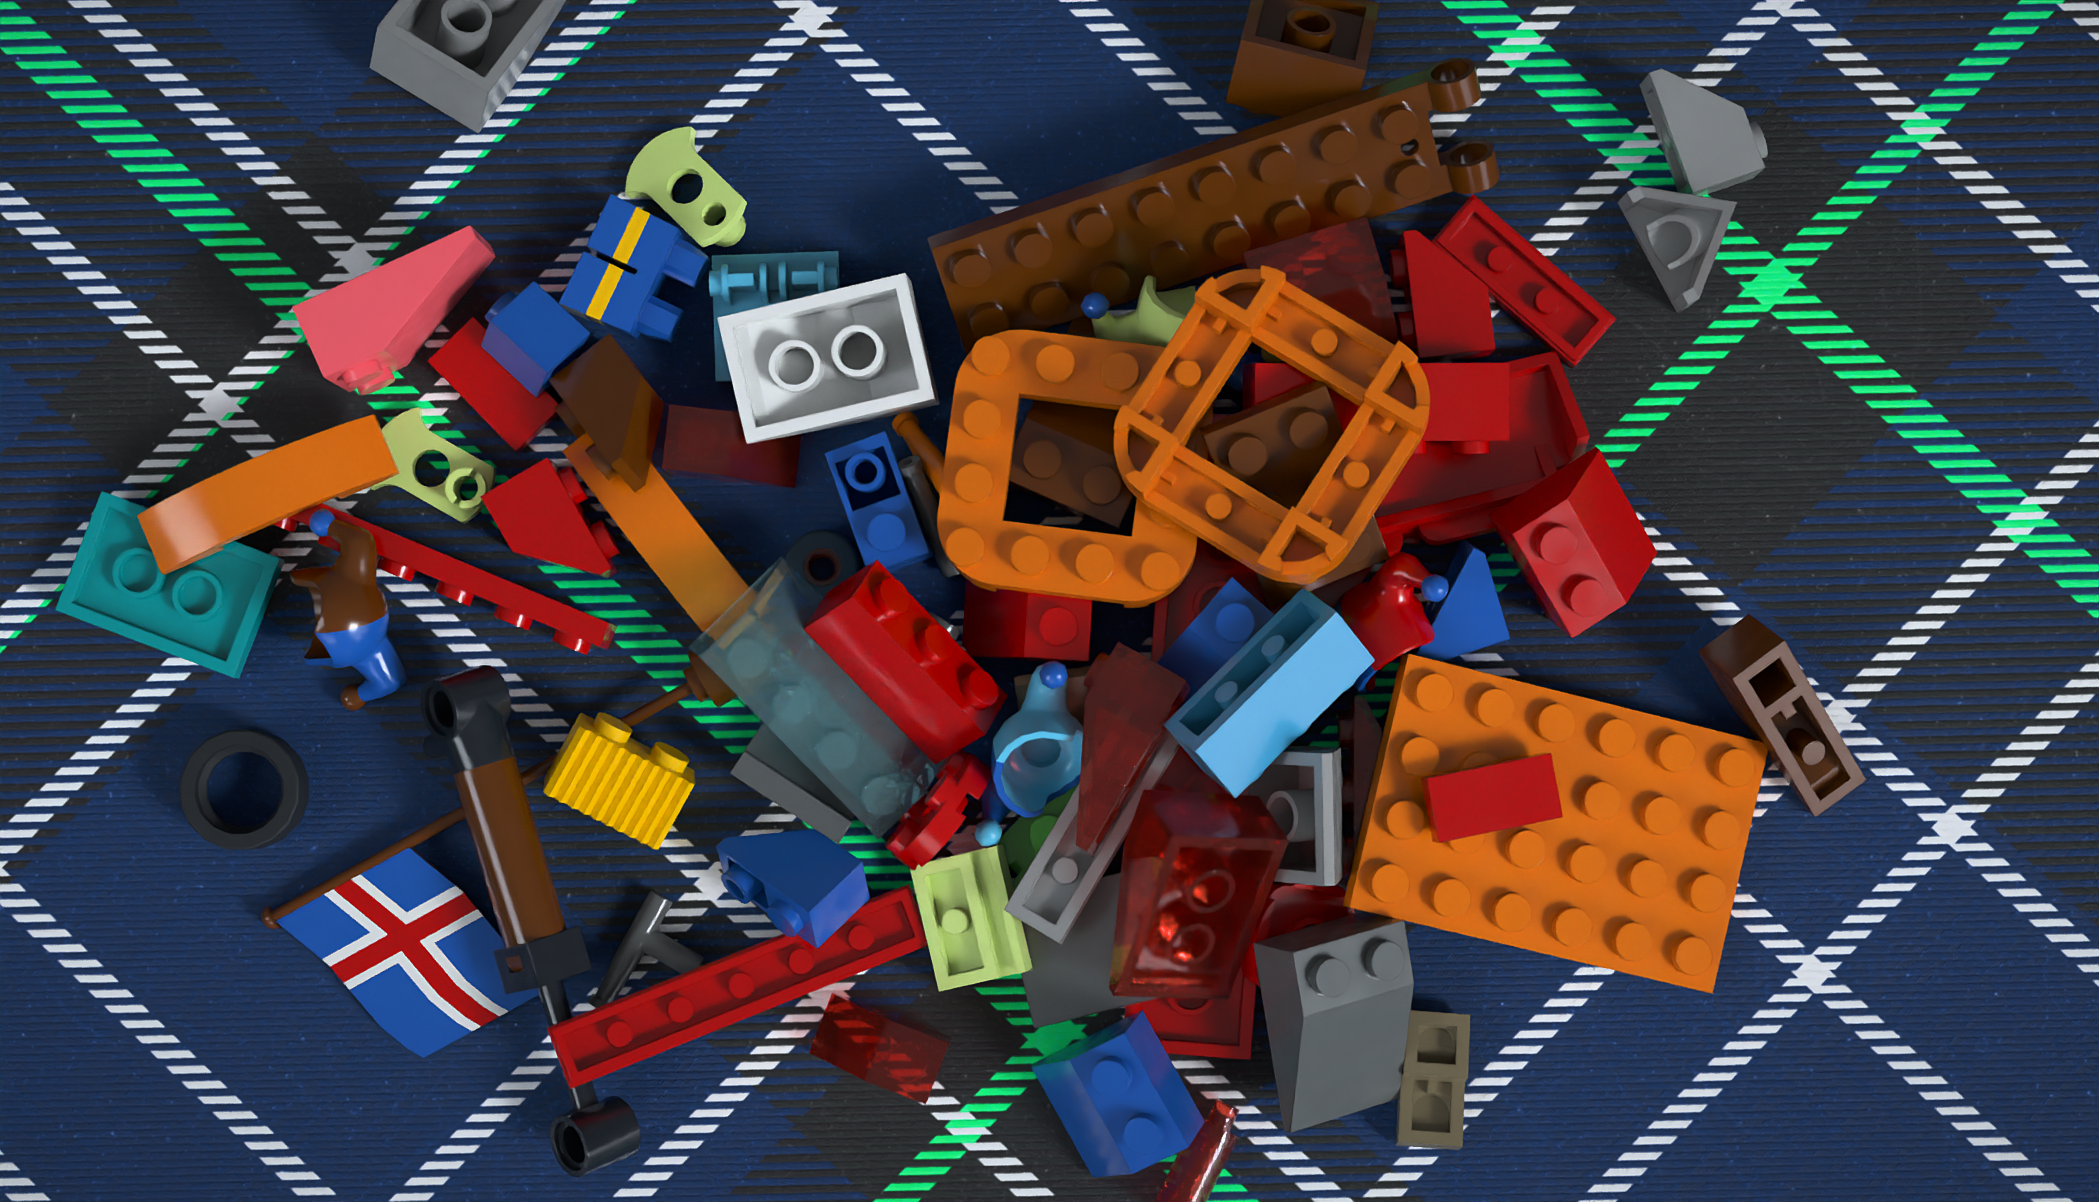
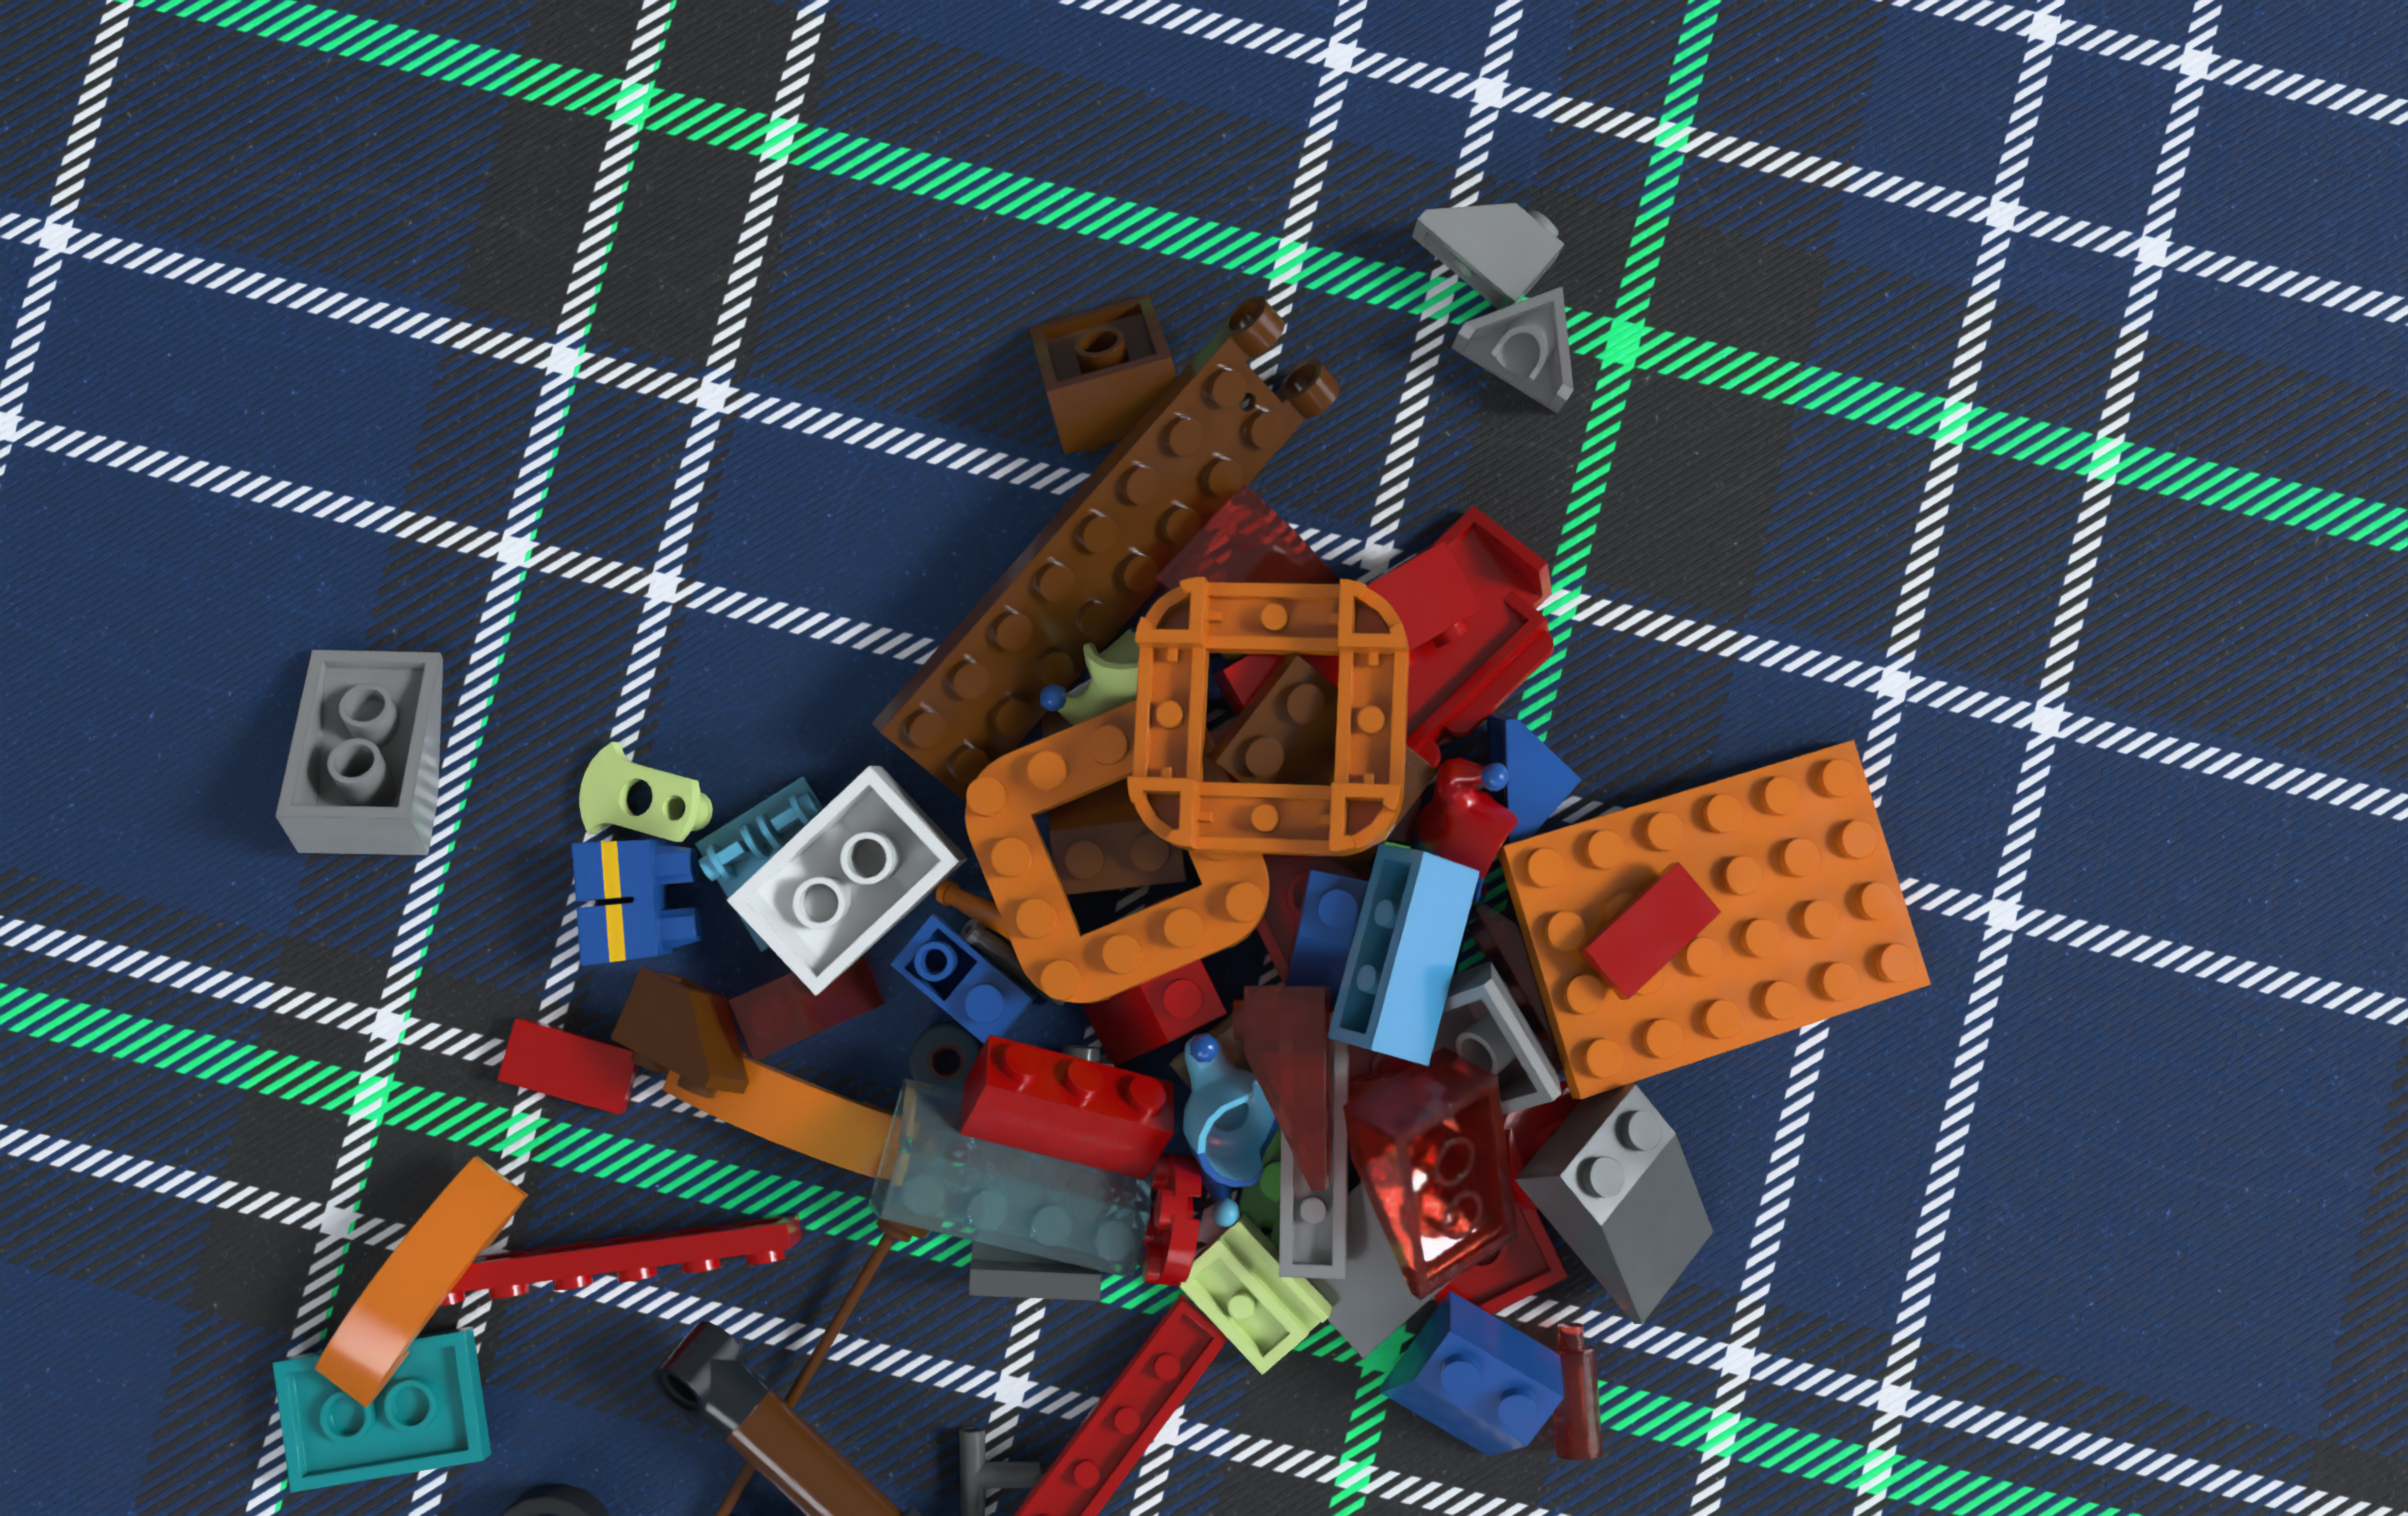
camera: 30 degrees left, 0 degrees up
(351, 613) = (552, 1346): piece -> none
(388, 314) = (436, 1061): coral slope -> none
(411, 439) = (521, 1157): yellowish green piece -> none
(532, 336) = (575, 1007): blue brick -> none
(546, 523) = (682, 1161): red slope -> none
(620, 779) = (875, 1354): yellow brick -> none
(797, 879) = (1083, 1350): blue slope -> none
(880, 1047) = (1240, 1454): clear red slope -> none
(1434, 1081) = (1735, 1200): dark tan slope -> none
(1444, 303) = (1354, 520): red slope -> none
(1524, 281) = (1410, 462): red tile -> none
(1576, 543) = (1590, 663): red slope -> none
(1782, 712) = (1849, 705): reddish brown slope -> none

